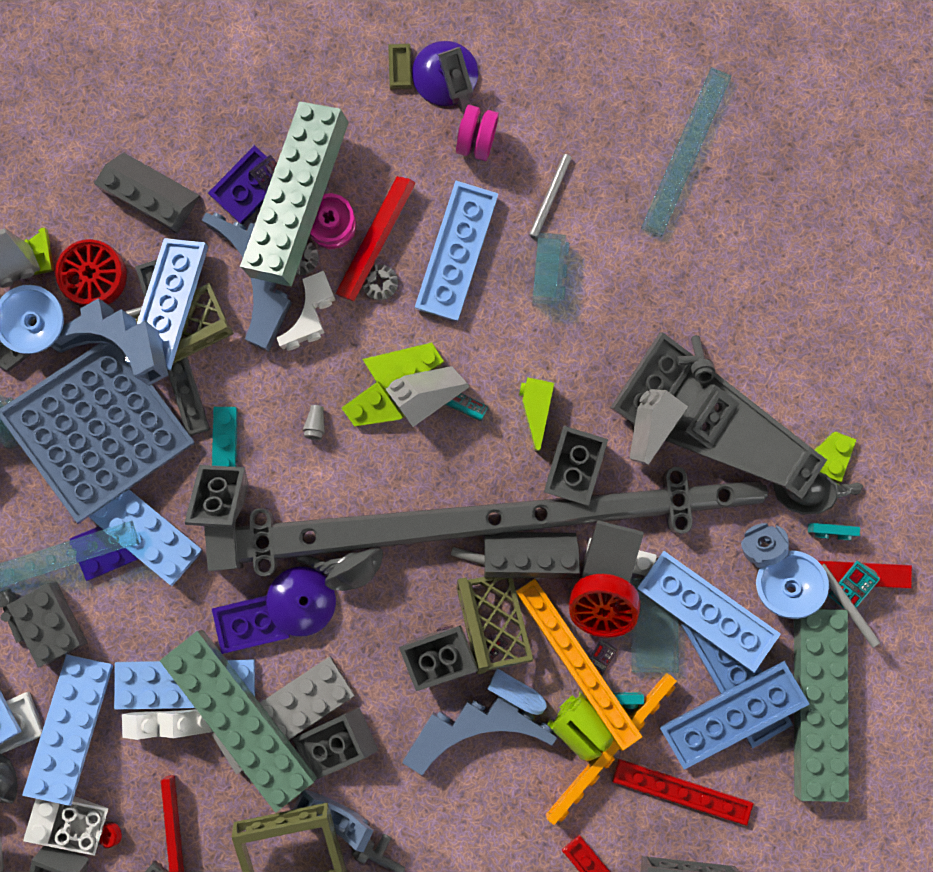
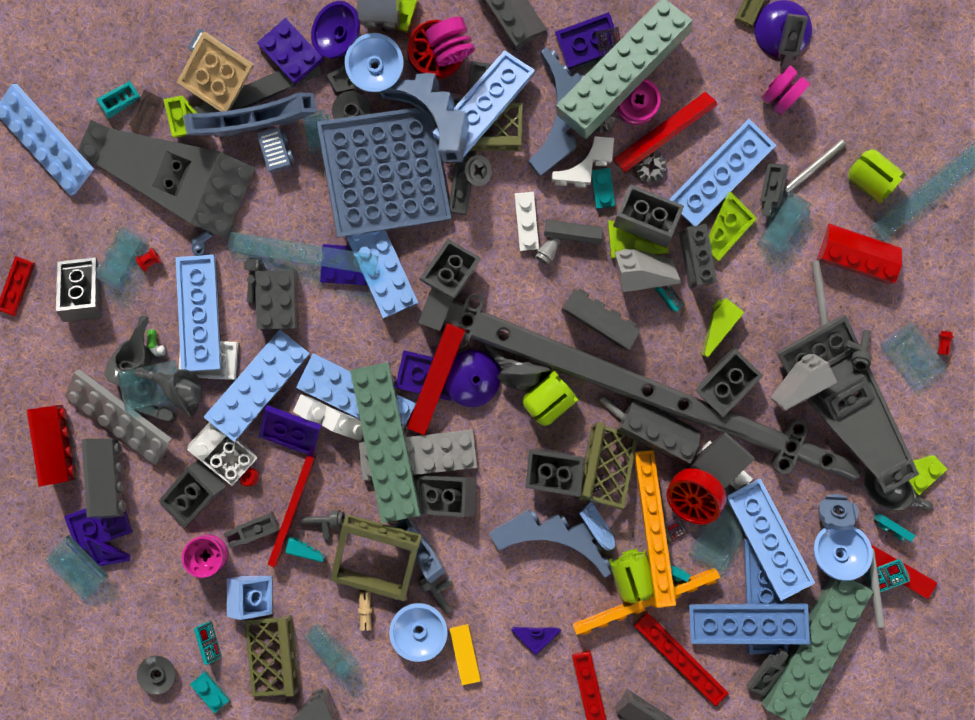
camera: 25 degrees right, 5 degrees up
(24, 372) = (347, 101): none -> dark grey dish
(96, 256) = (450, 41): none -> dark pink wheel
(128, 760) = (289, 430): none -> dark purple plate
(207, 376) = (484, 172): none -> light grey gear
(219, 841) = (335, 520): none -> dark grey piece
(224, 436) = (475, 225): teal plate -> none
(260, 622) = (436, 378): none -> red tile
(277, 404) = (526, 221): none -> white plate
(331, 390) = (573, 231): none -> dark grey tile
(340, 329) = (602, 188): none -> teal plate
(372, 407) = (597, 260): lime wing -> none
(393, 582) = (549, 399): none -> lime cylinder
(400, 333) = (648, 216): none -> dark grey brick
(406, 468) = (601, 320): none -> dark grey slope
(474, 349) = (697, 256): none -> dark grey window
(492, 302) = (729, 225): none -> lime wing
(512, 851) = (535, 637): none -> dark purple tile
(519, 239) = (773, 188): none -> dark grey hinge
(617, 172) = (875, 175): none -> lime cylinder
(623, 320) = (820, 292): none -> light grey bar
(645, 261) = (861, 254): none -> red slope
(757, 338) = (913, 355): none -> clear light blue tile
(782, 307) = (945, 342): none -> red pin
(783, 758) = (768, 672): none -> dark grey hinge

